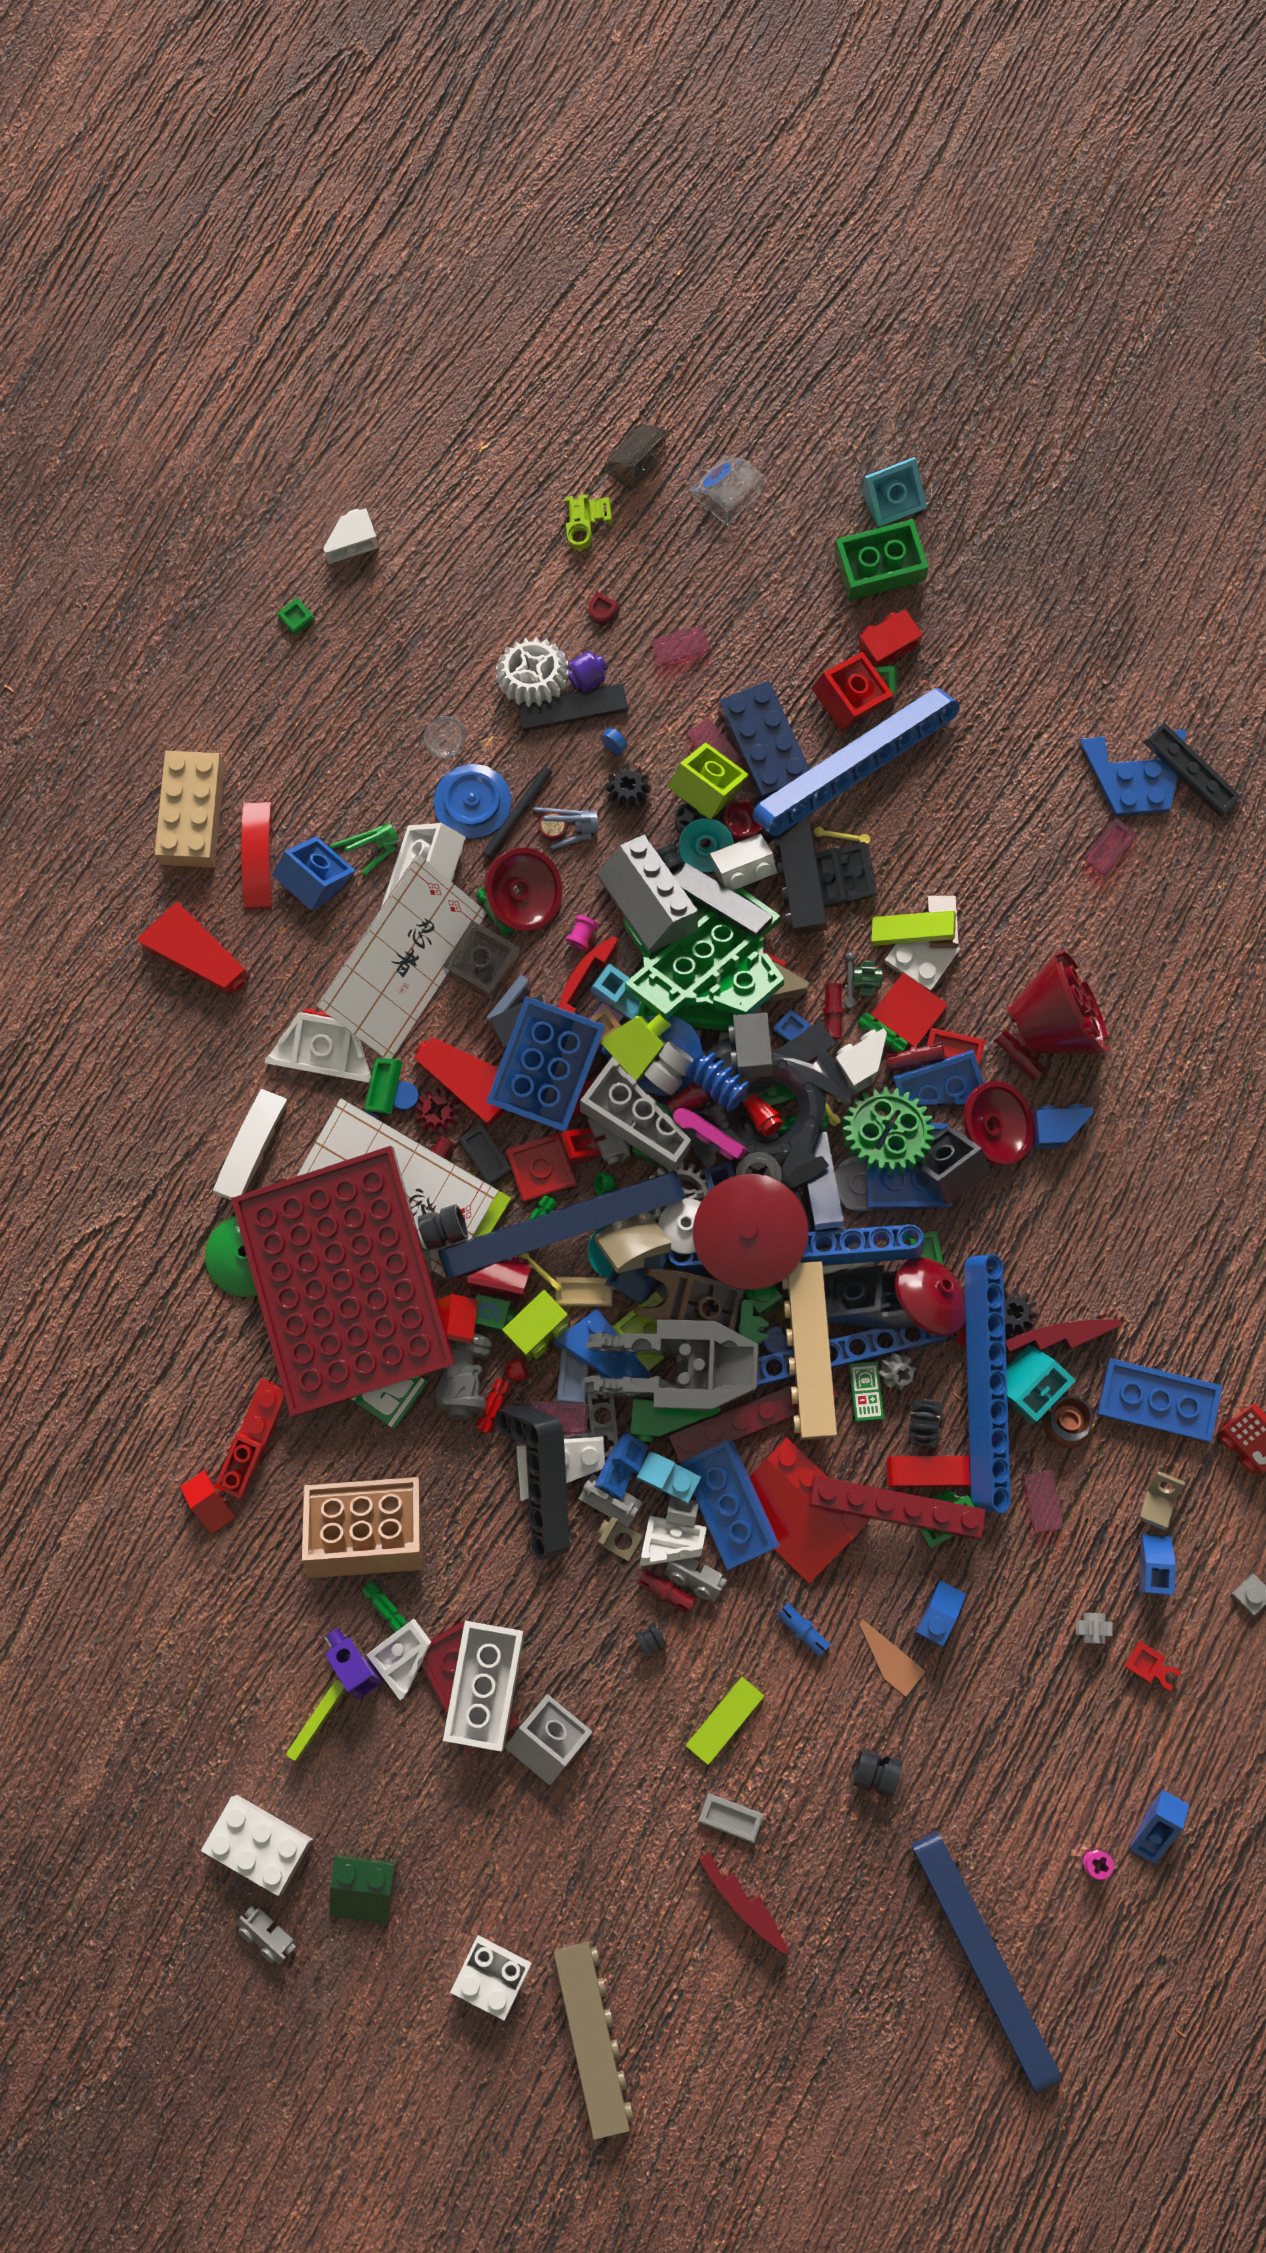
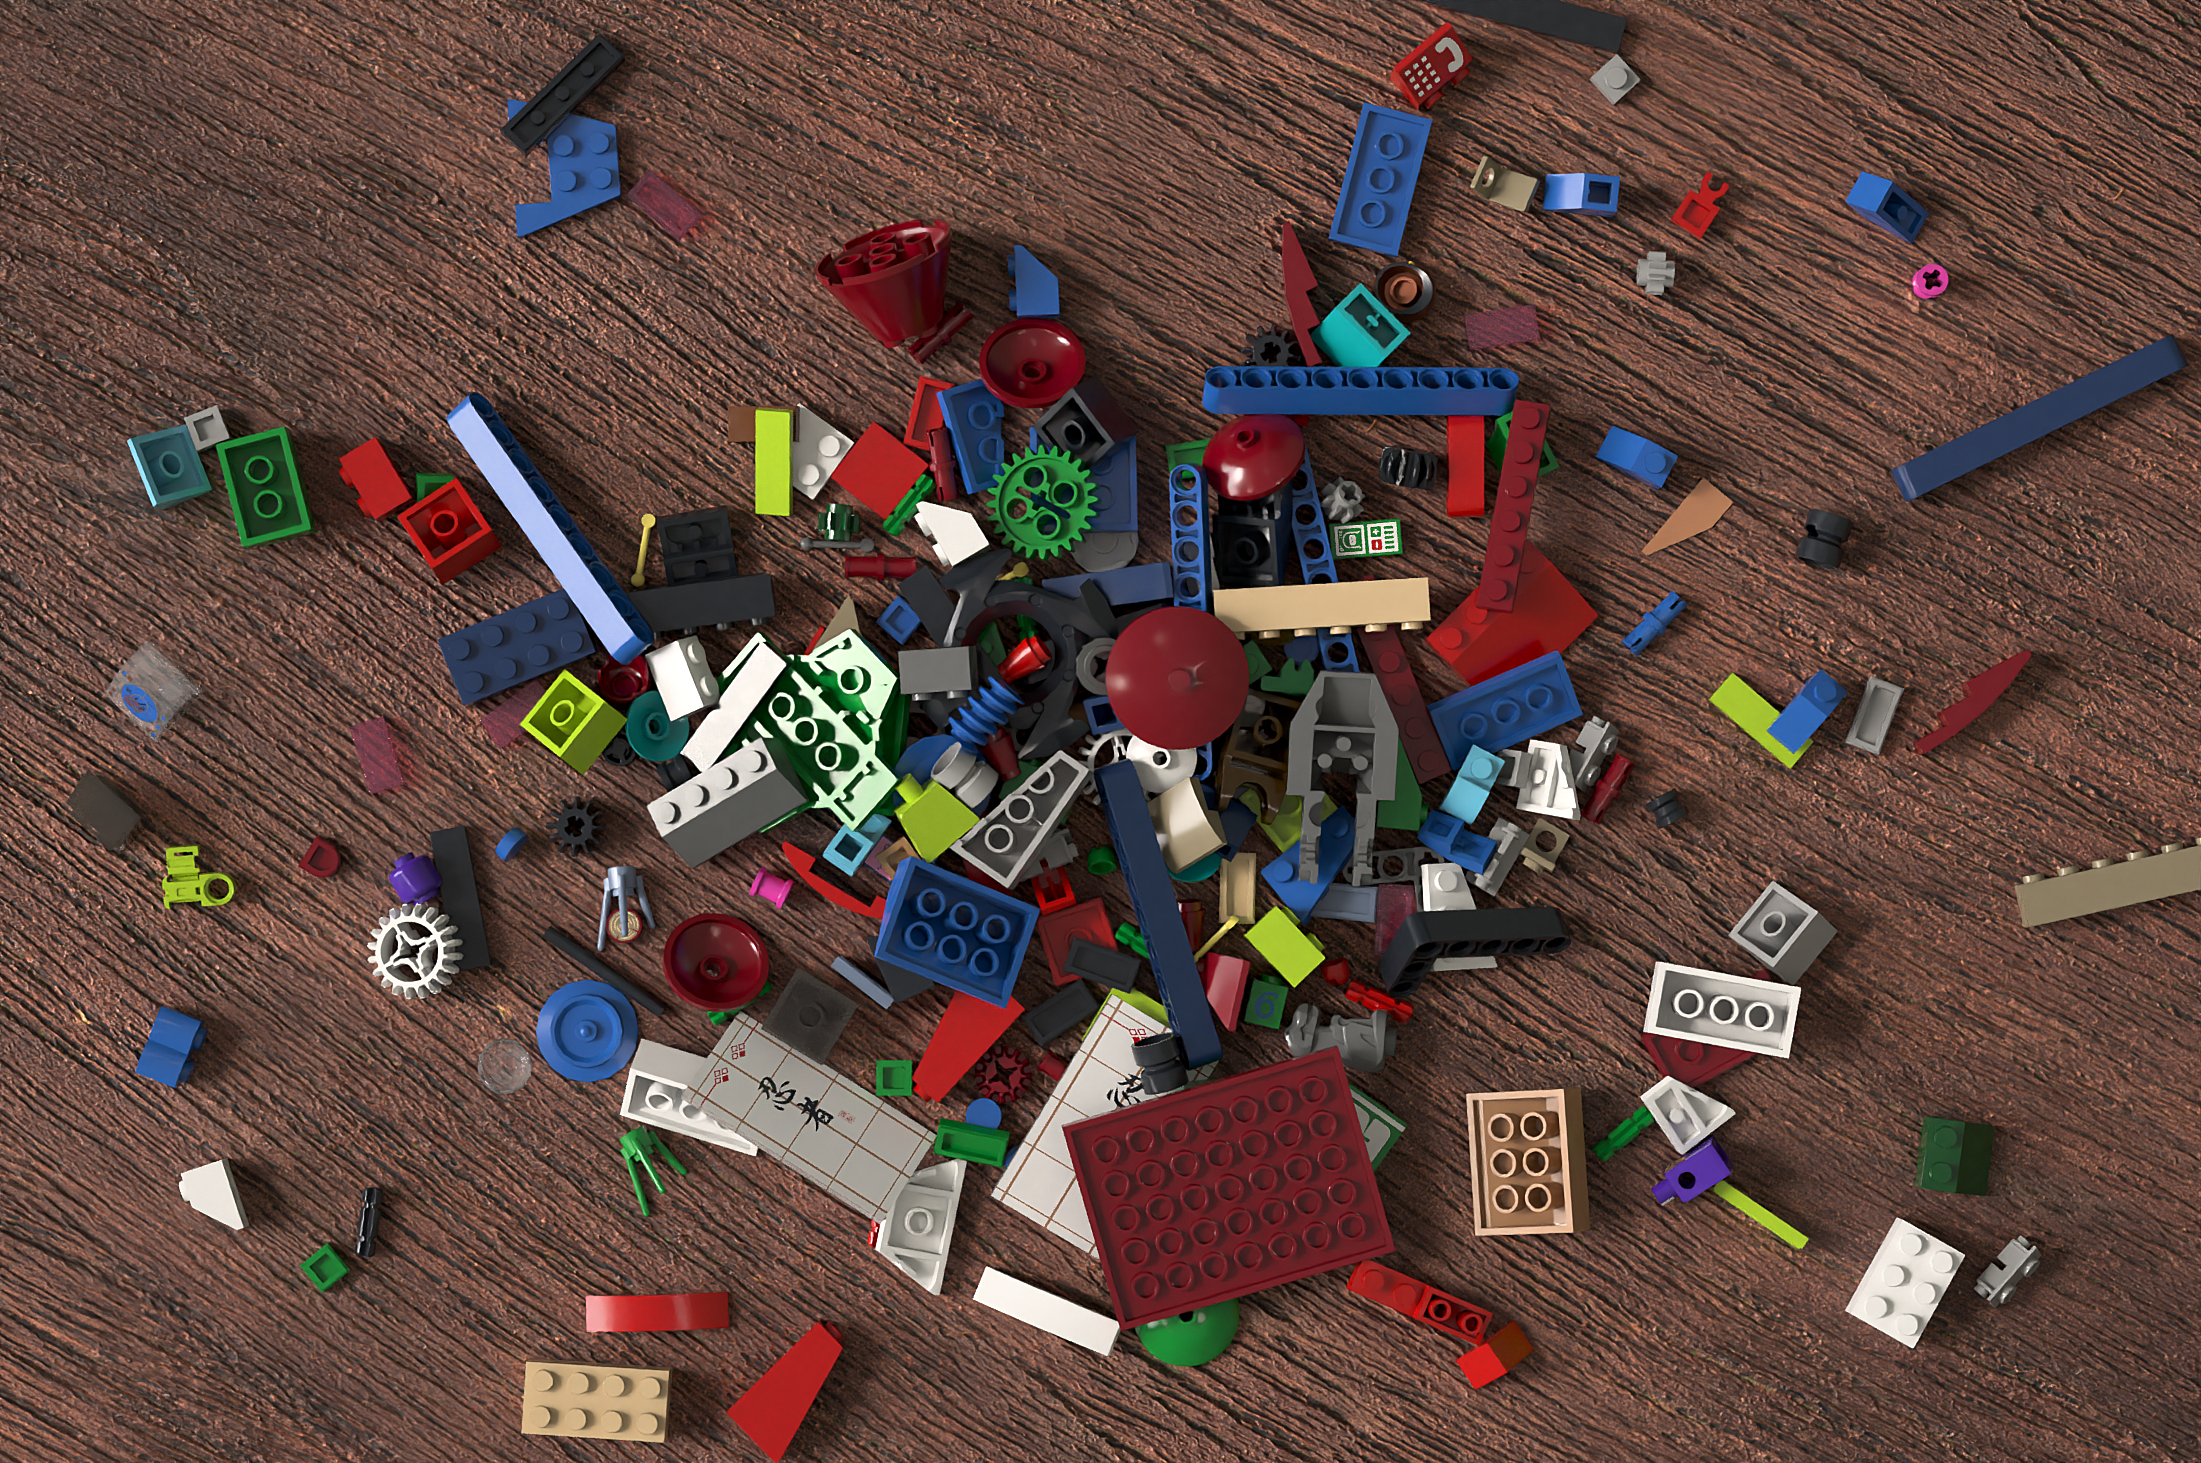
camera: 90 degrees left, 10 degrees up
(312, 872) = (685, 1237): blue slope -> none
(329, 645) = (368, 1222): none -> black axle
(434, 1025) = (894, 1077): none -> green plate
(458, 1317) = (1275, 1042): red slope -> none
(461, 503) = (171, 1047): none -> blue brick
(491, 1977) = (2057, 1001): white slope -> none
(521, 1184) = (1101, 965): none -> black tile
(557, 1253) = (1193, 919): none -> dark red cone
(707, 1132) = (1050, 726): dark pink hinge -> none
(733, 1758) = (1807, 711): none -> blue slope
(925, 520) = (207, 428): none -> light grey plate

